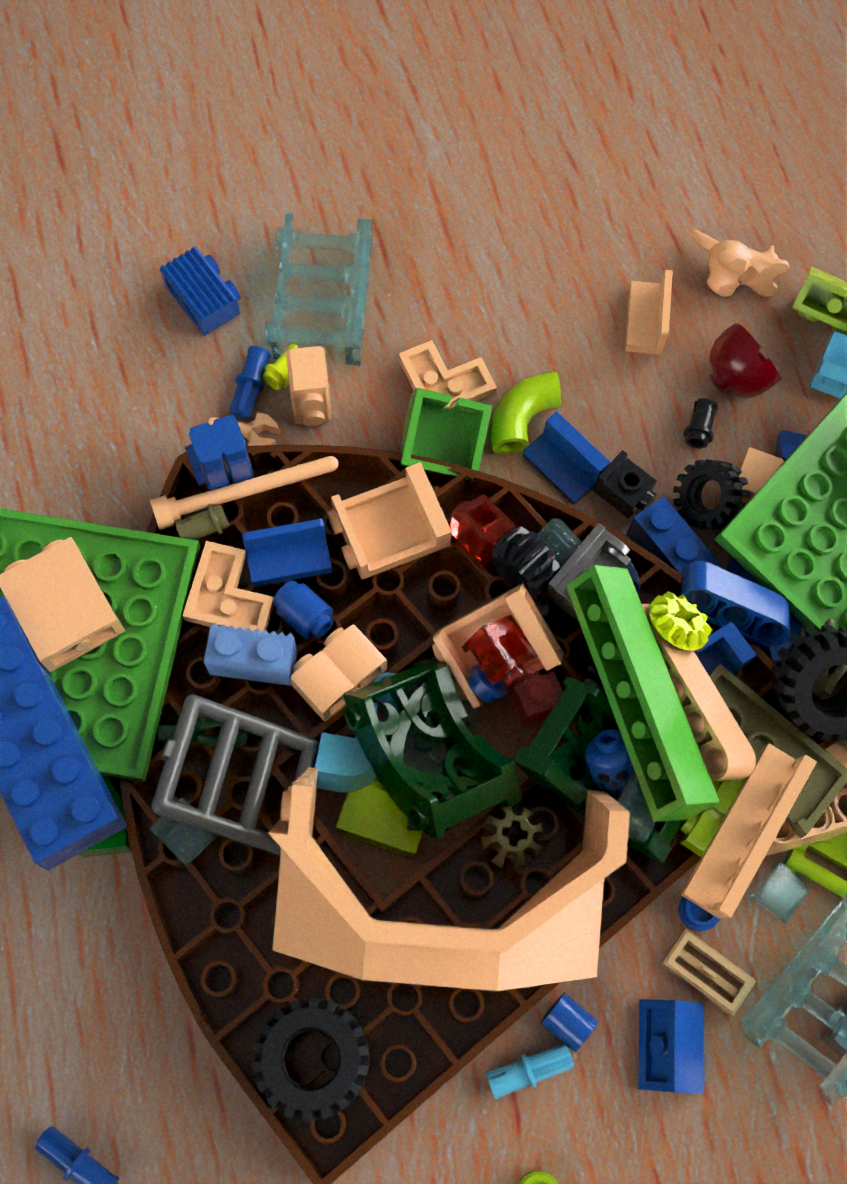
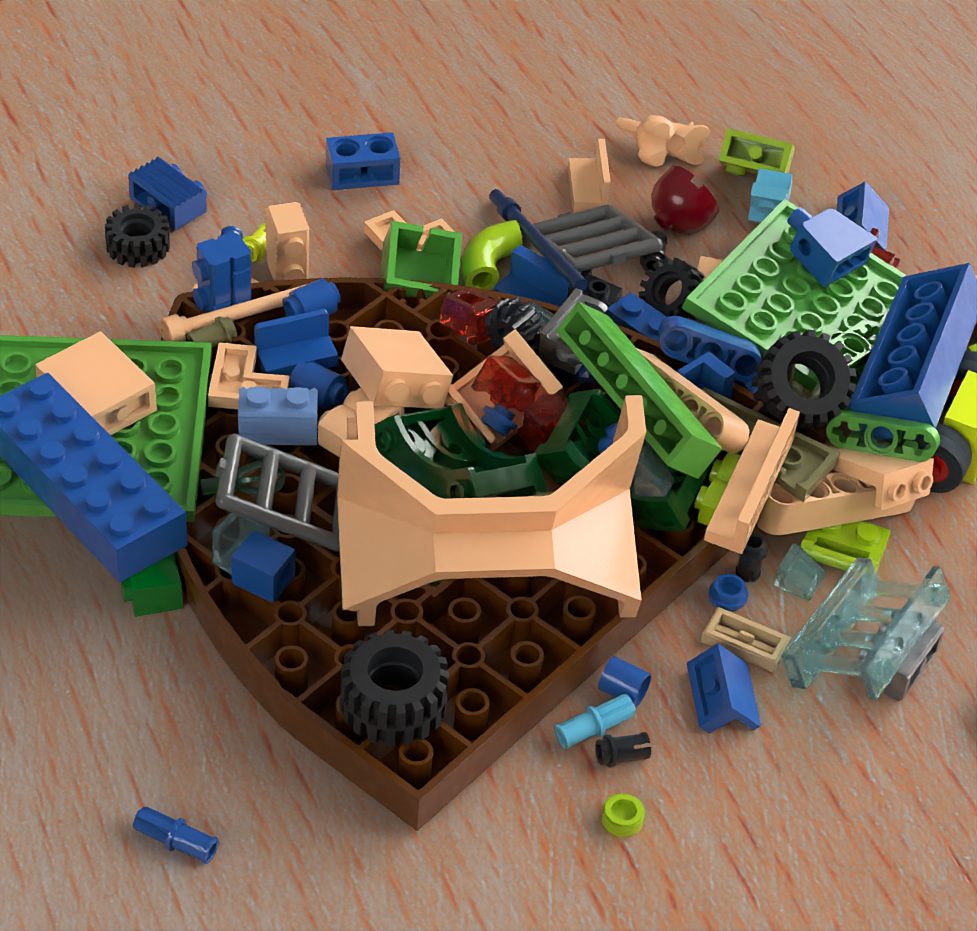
camera: 10 degrees left, 25 degrees down
(154, 328) = (137, 222): none -> black tyre
(203, 862) = (263, 566): none -> blue panel
(314, 489) = (312, 297): none -> blue brick
(351, 307) = (311, 171): clear light blue fence -> none
(385, 610) = (396, 368): none -> light nougat brick
(390, 524) = (401, 308): light nougat panel -> none
(411, 272) = (362, 161): none -> blue brick
(552, 1111) = (619, 749): none -> black pin
(556, 352) = (510, 210): none -> dark blue bar
(599, 427) = (615, 221): none -> dark grey bar
(686, 630) = (662, 349): neon yellow gear -> none

